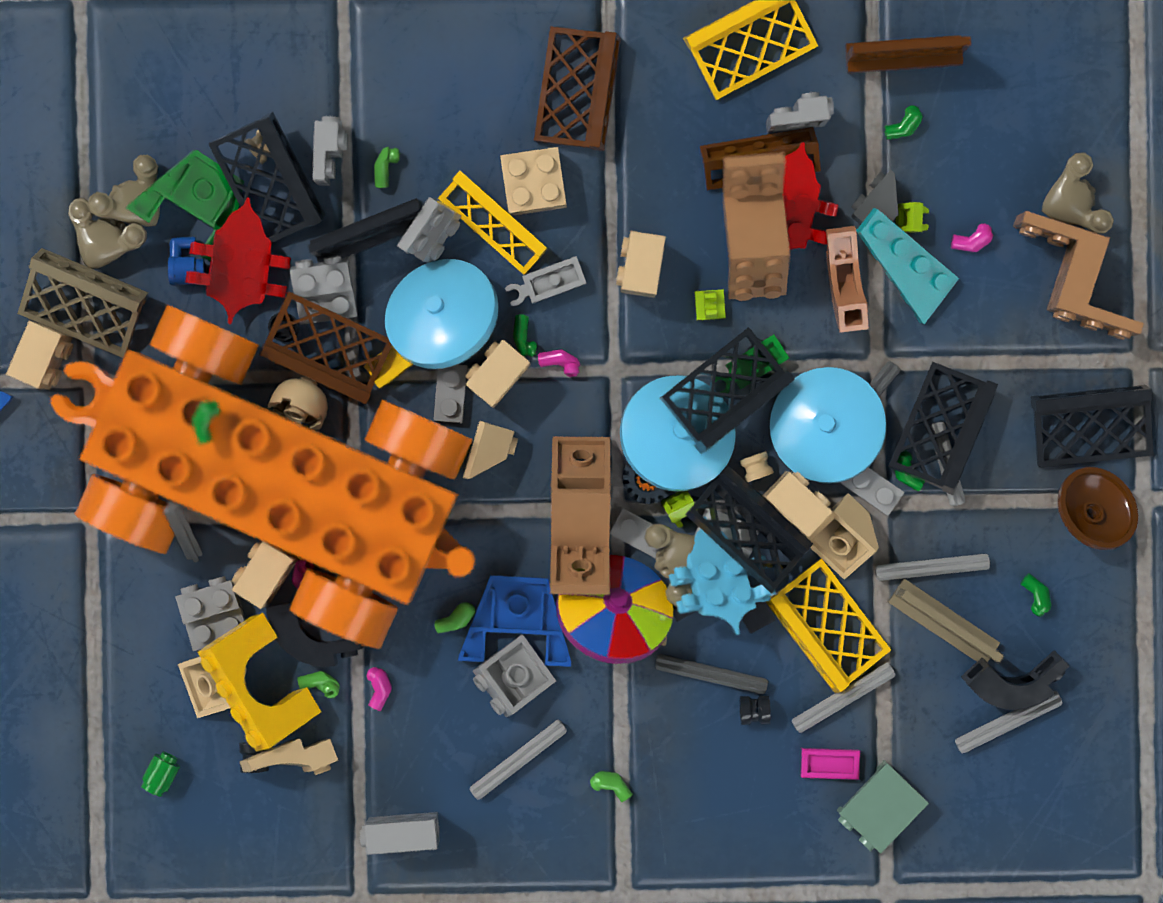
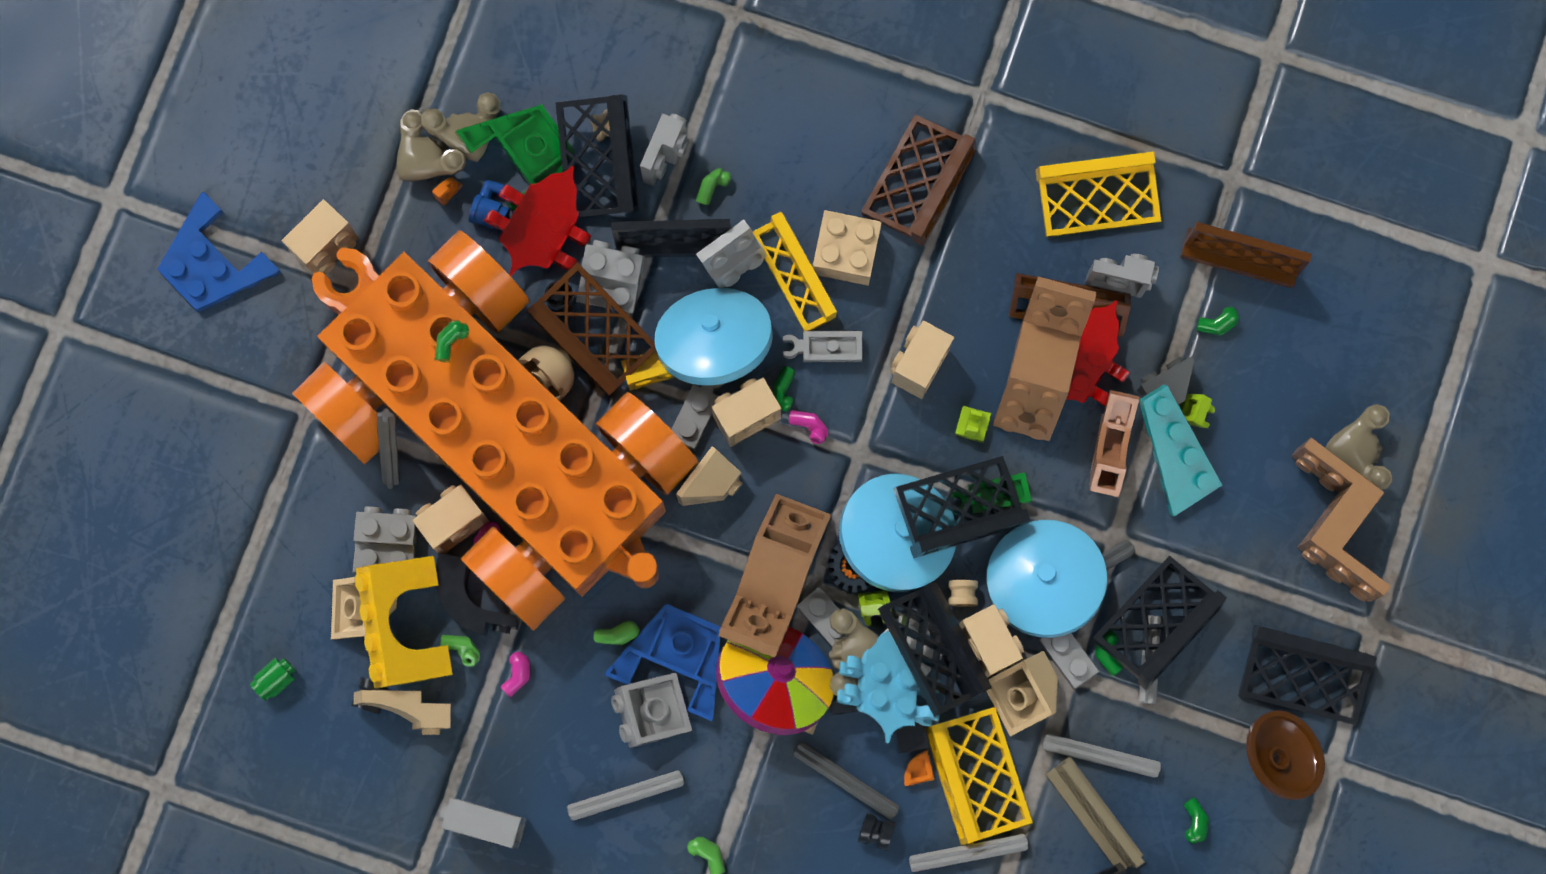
camera: 20 degrees right, 10 degrees down
(83, 280) = (389, 185): dark tan fence -> none
(138, 262) = (446, 190): none -> orange tile
(772, 640) = (918, 770): none -> orange tile
(975, 242) = (1249, 456): dark pink arm -> none

